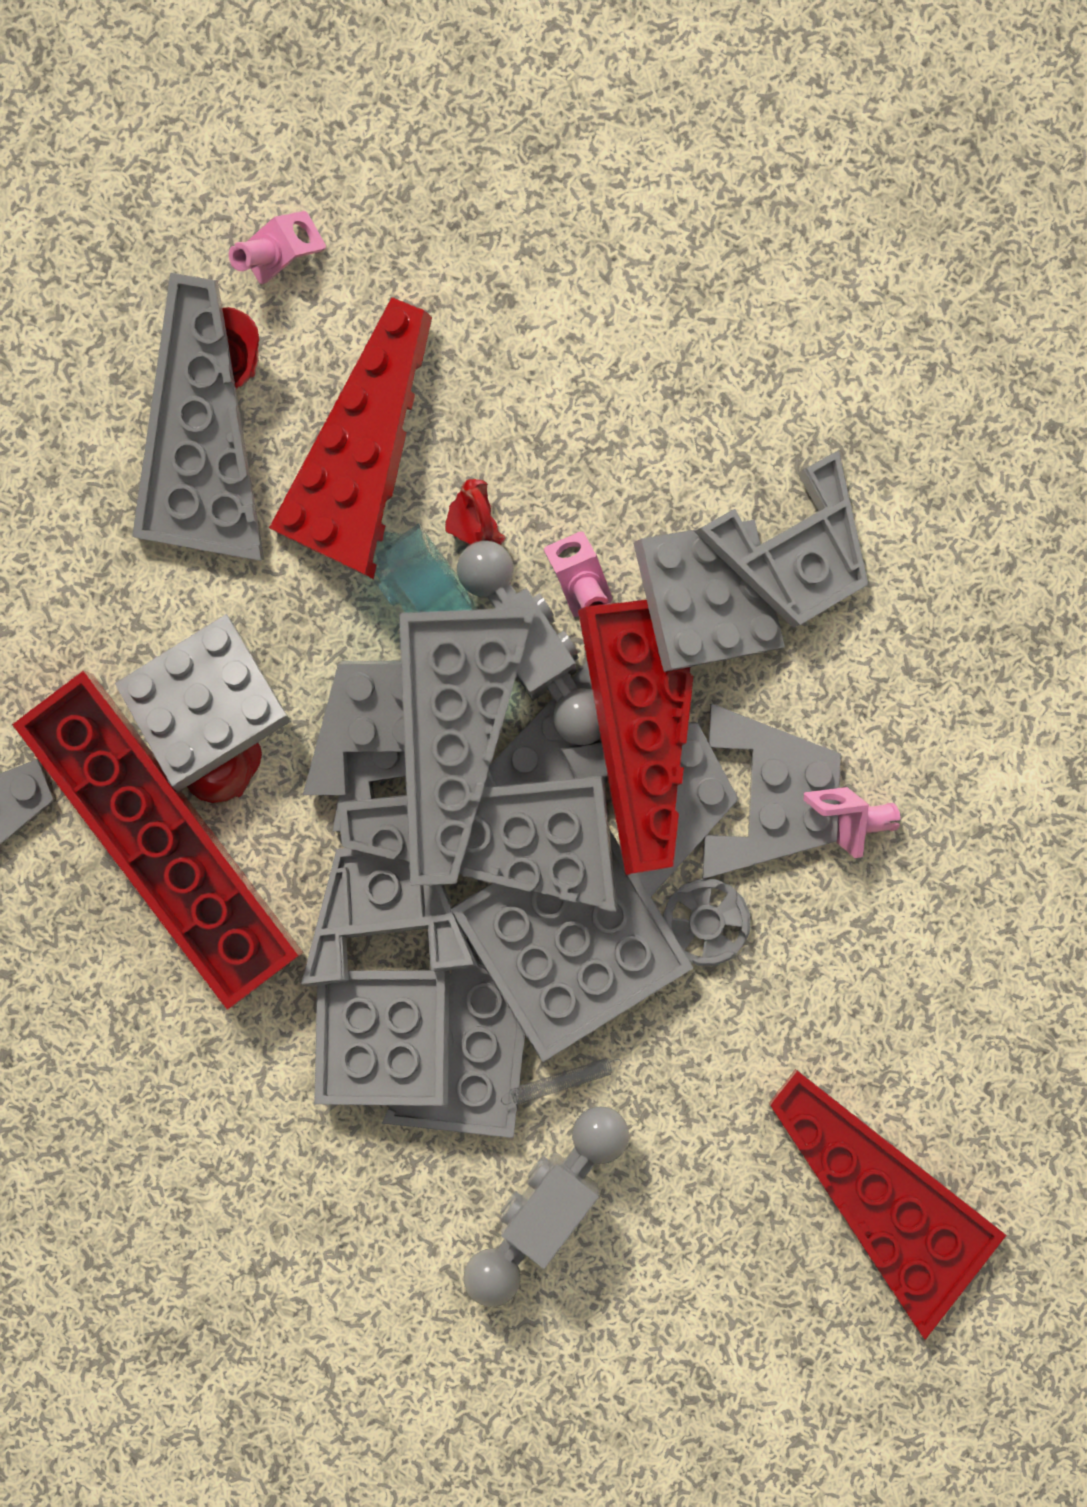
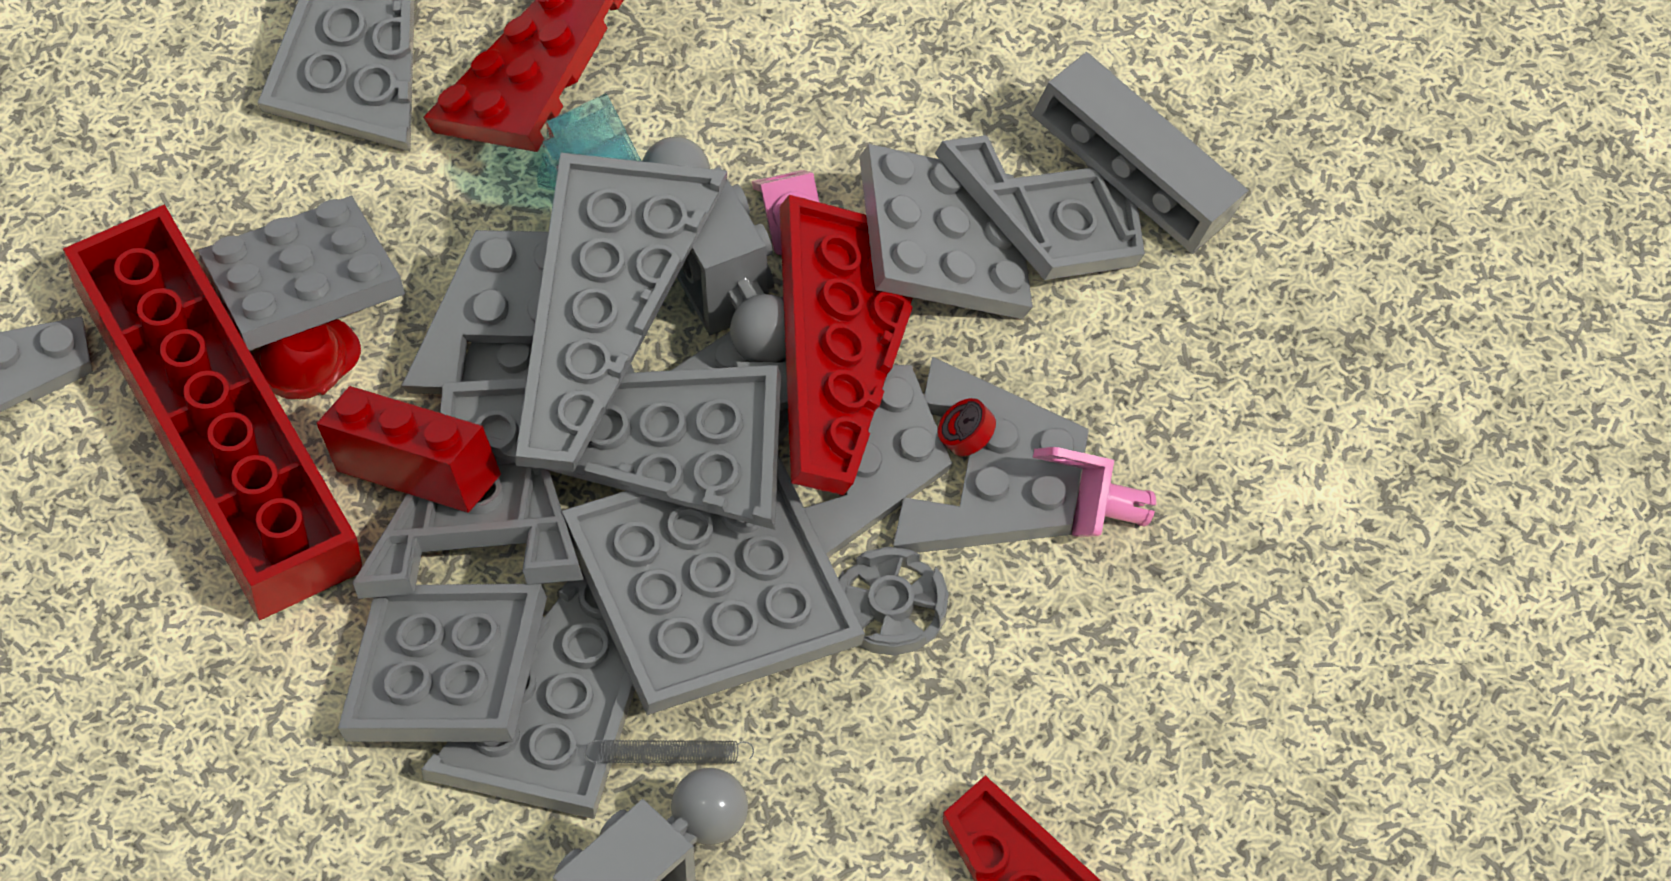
camera: 10 degrees right, 30 degrees down
(321, 862) = (409, 448): none -> red brick
(471, 516) = (670, 119): red piece -> none
(747, 771) = (966, 427): none -> tile
(857, 497) = (1139, 152): none -> light grey brick

